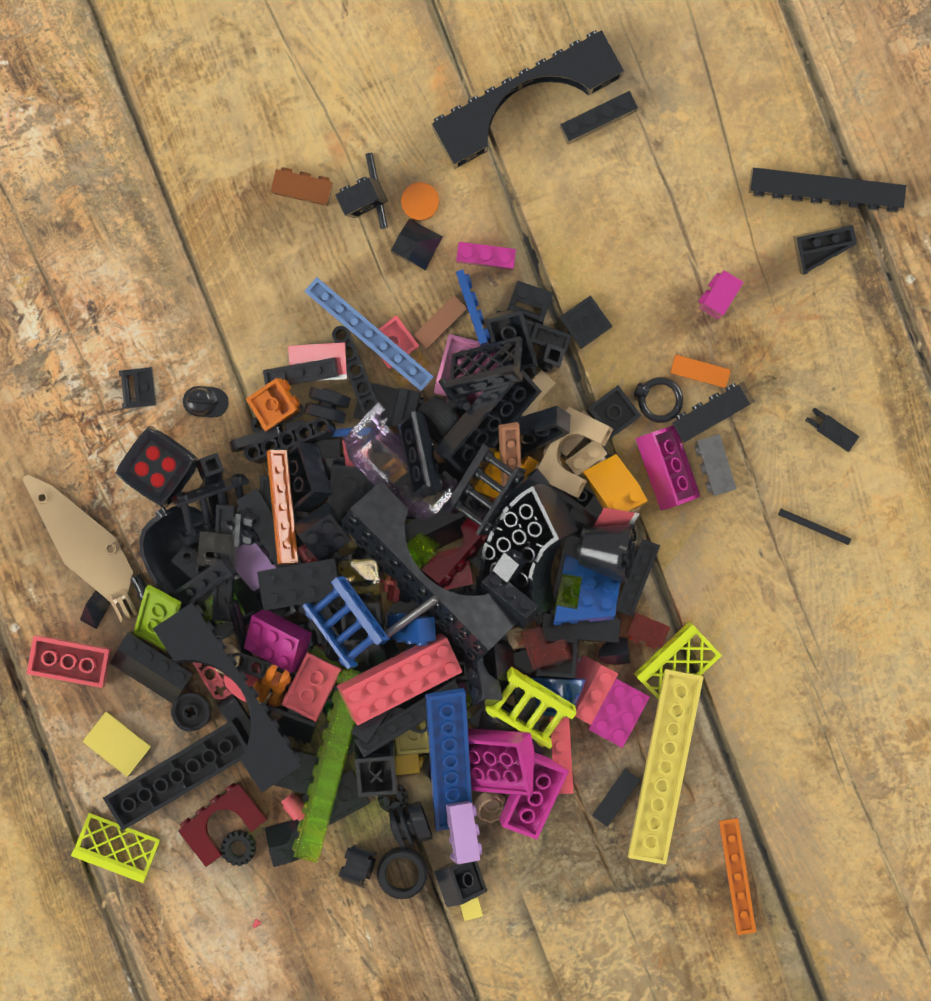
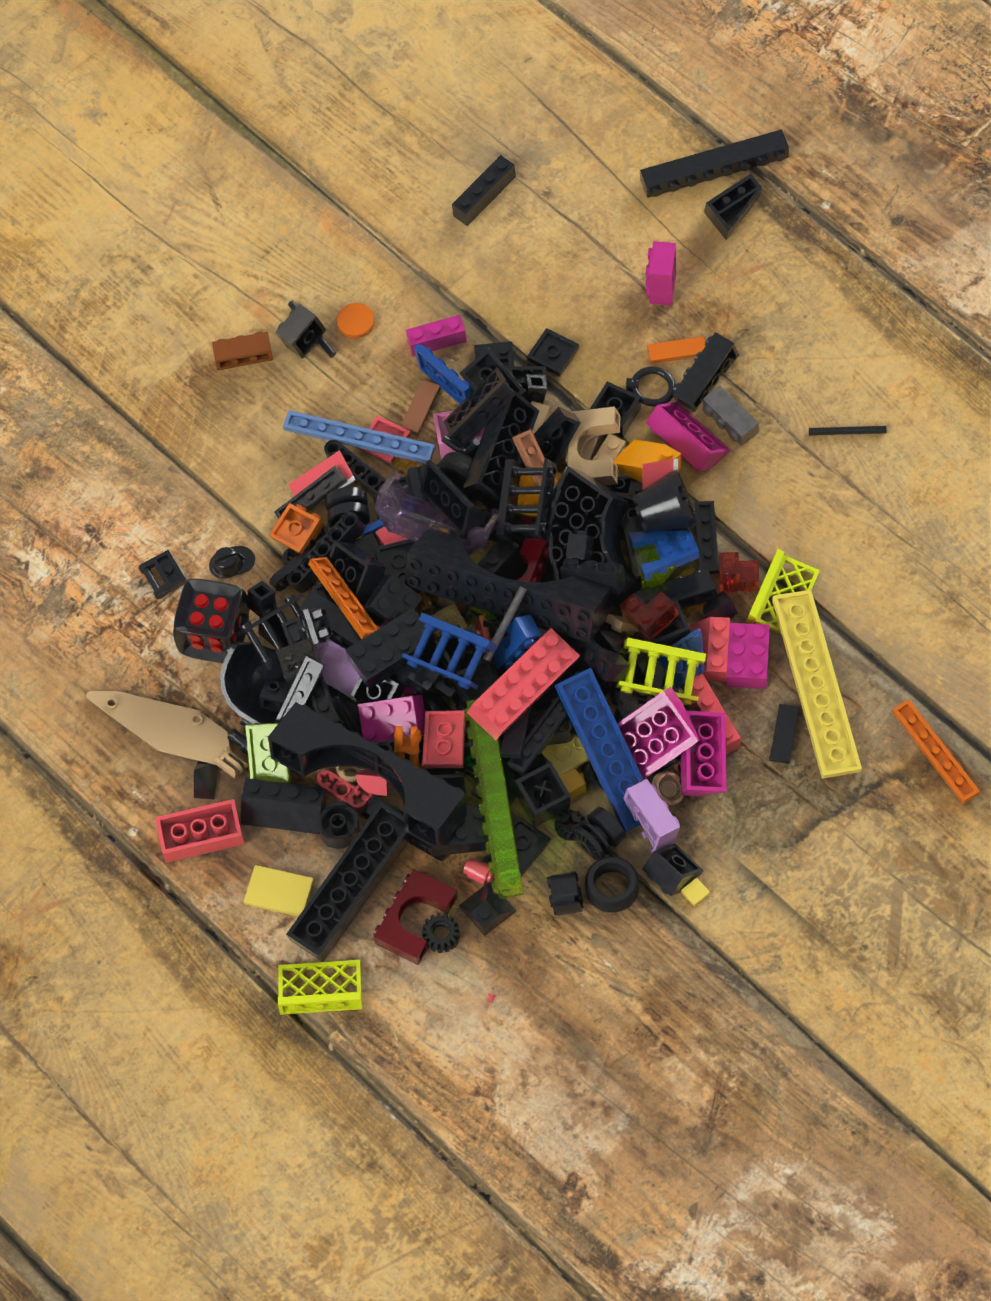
camera: 20 degrees left, 25 degrees down
(416, 244) = (368, 356): black slope -> none
(584, 65) = (449, 155): black arch -> none
(833, 430) = (821, 347): black hinge -> none

